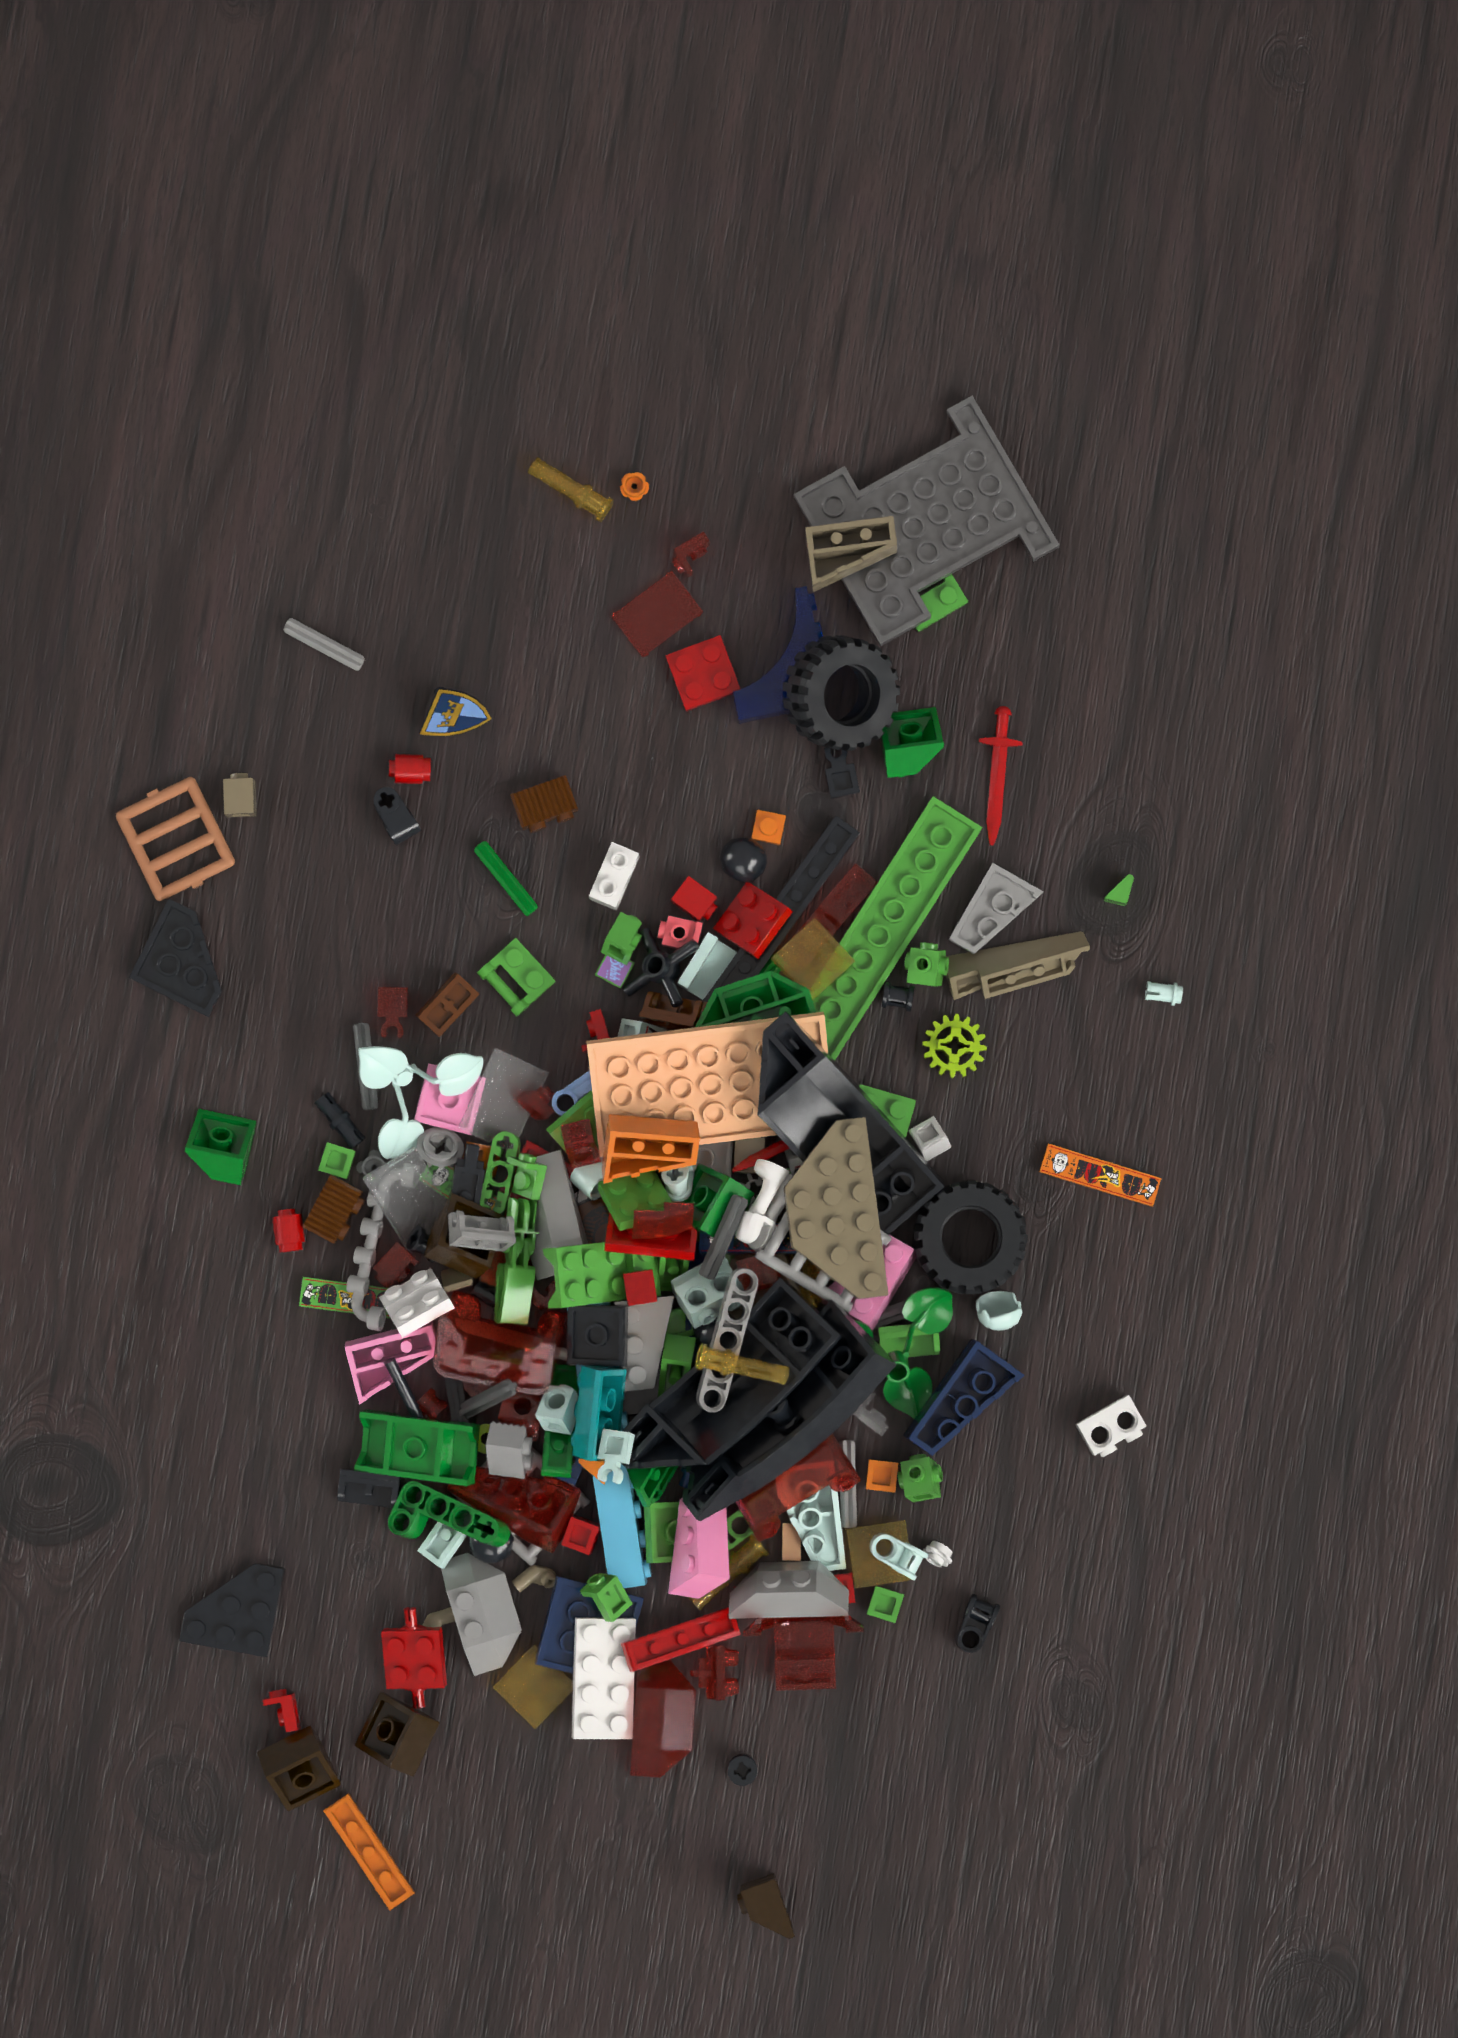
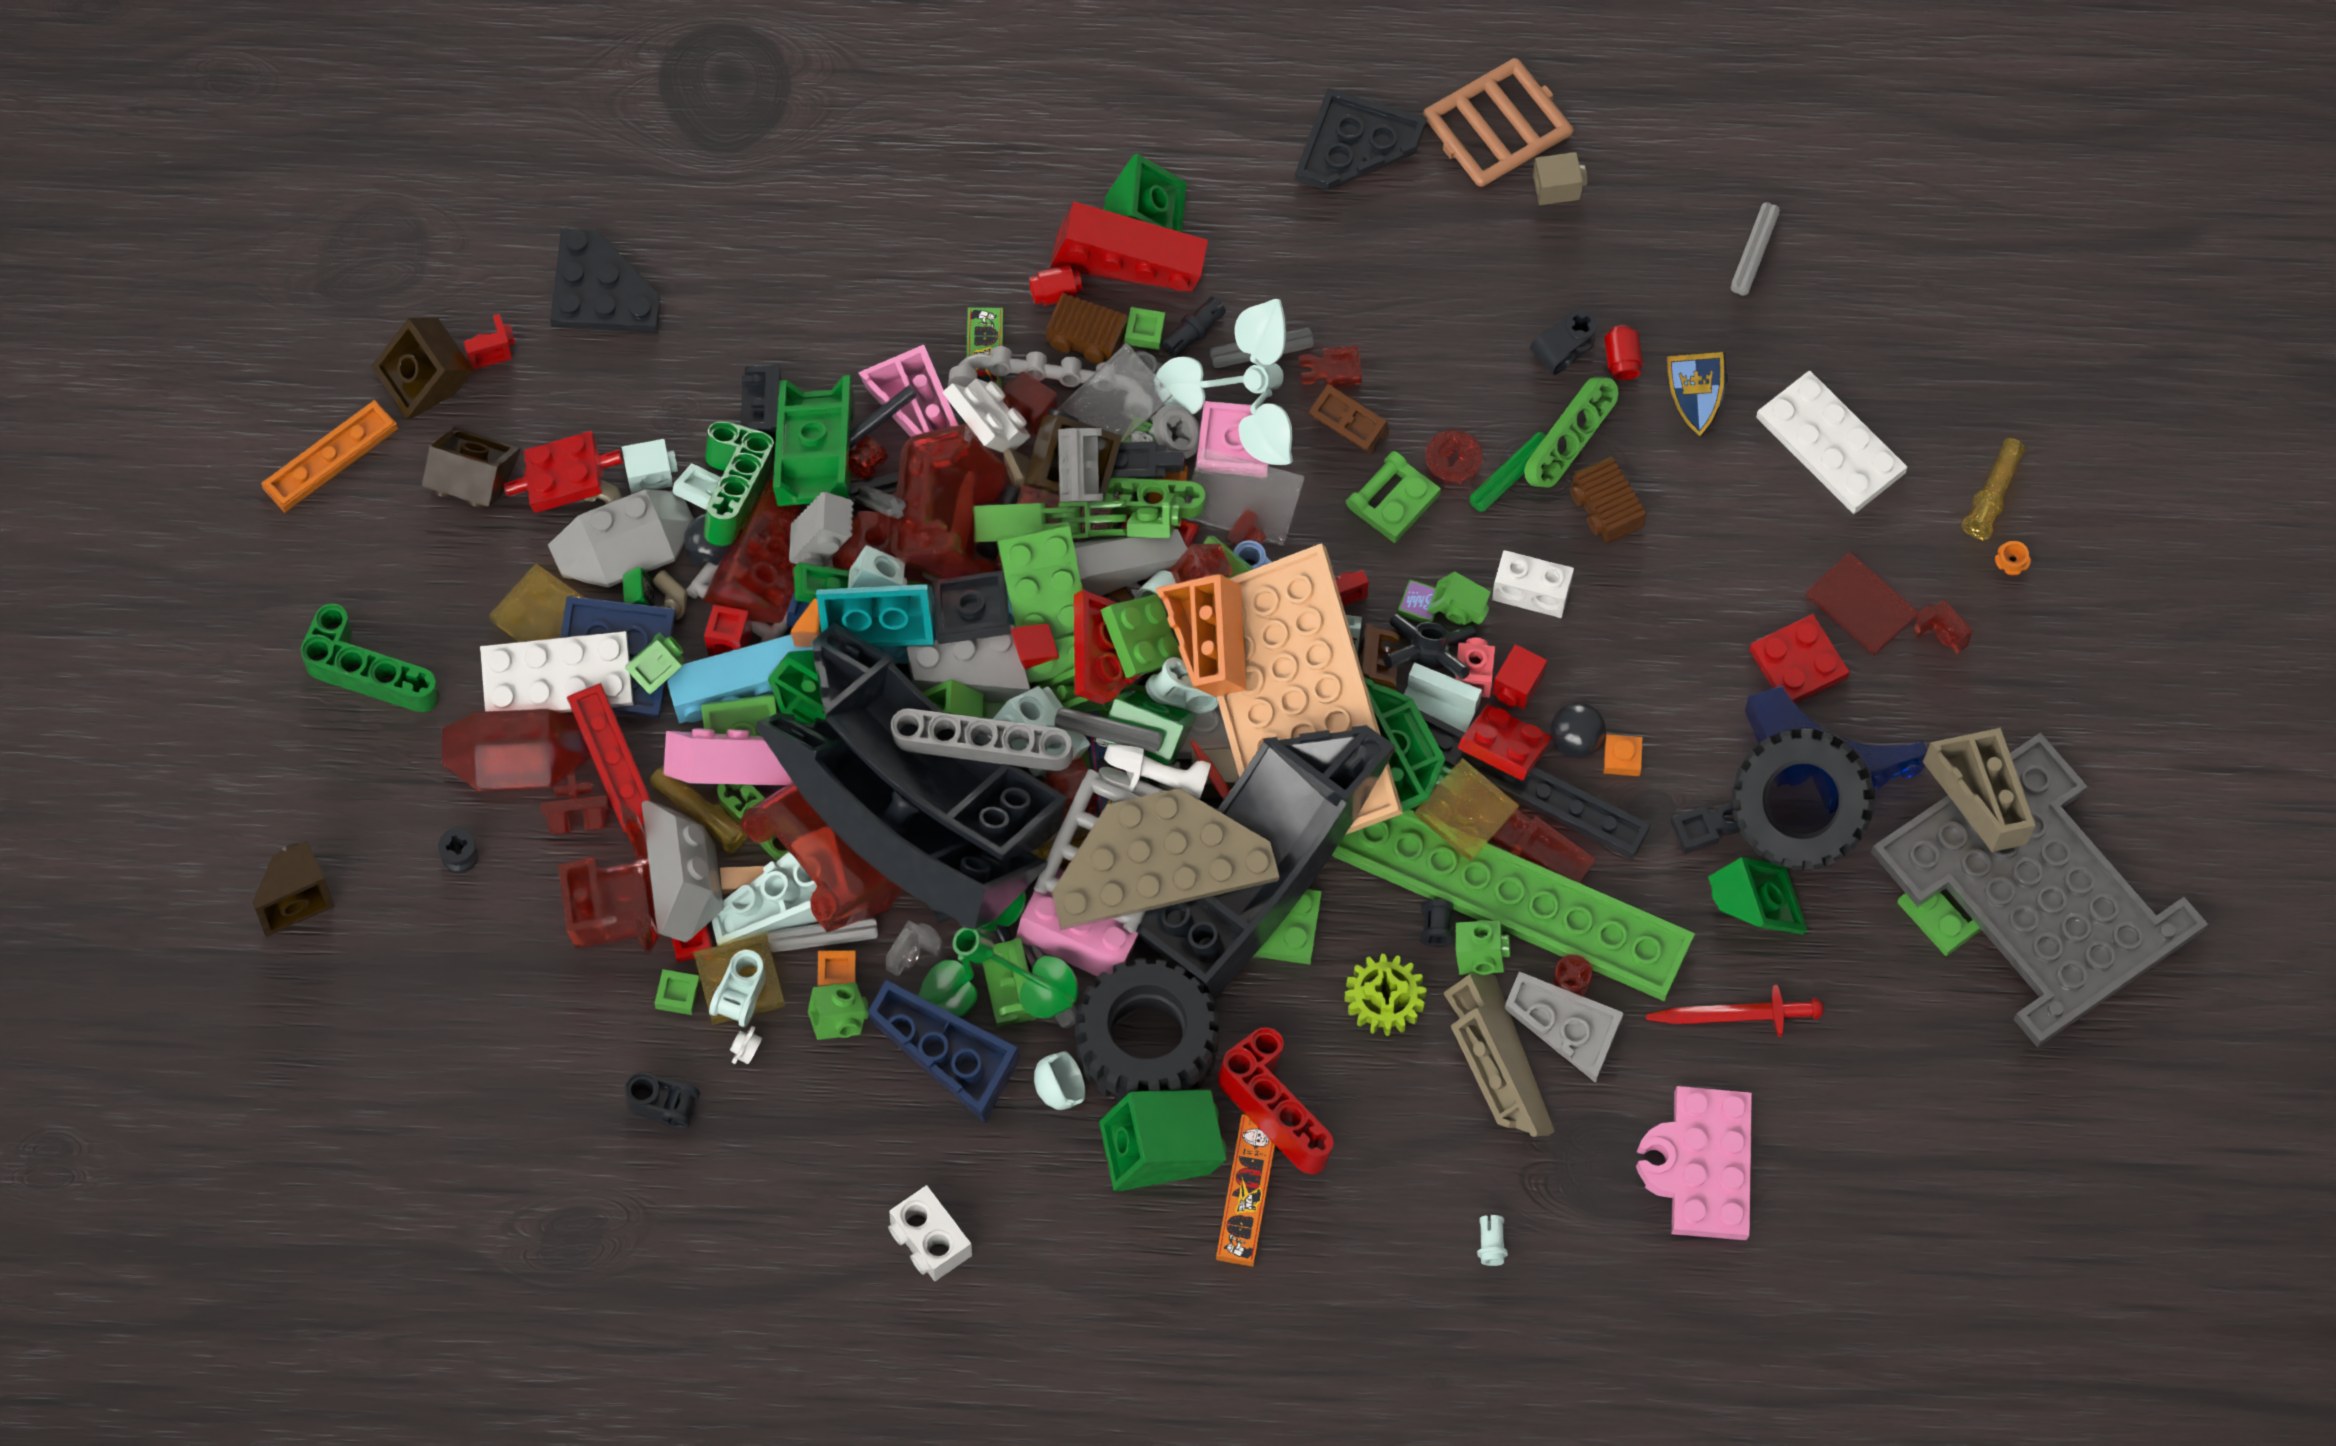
camera: 85 degrees right, 20 degrees down
(265, 1165) = (1127, 249): none -> red wedge
(415, 1586) = (649, 465): none -> light aqua brick
(476, 825) = (1568, 427): none -> bright green beam
(482, 909) = (1443, 445): none -> clear red gear
(510, 612) = (1831, 442): none -> white plate
(531, 1604) = (638, 587): none -> green slope
(571, 1829) = (417, 694): none -> green beam
(614, 1450) = (831, 622): light aqua plate -> none
(656, 1224) = (1119, 660): clear red slope -> none
(727, 1362) = (953, 731): clear yellow pin -> none
(930, 1138) = (1264, 984): white slope -> none
(960, 894) = (1575, 969): none -> clear red wheel
(1039, 1140) = (1305, 1143): none -> red beam
(1056, 1235) = (1162, 1138): none -> green slope
(1119, 819) = (1704, 1163): none -> bright pink plate
(1121, 892) = (1614, 1172): bright green slope -> none

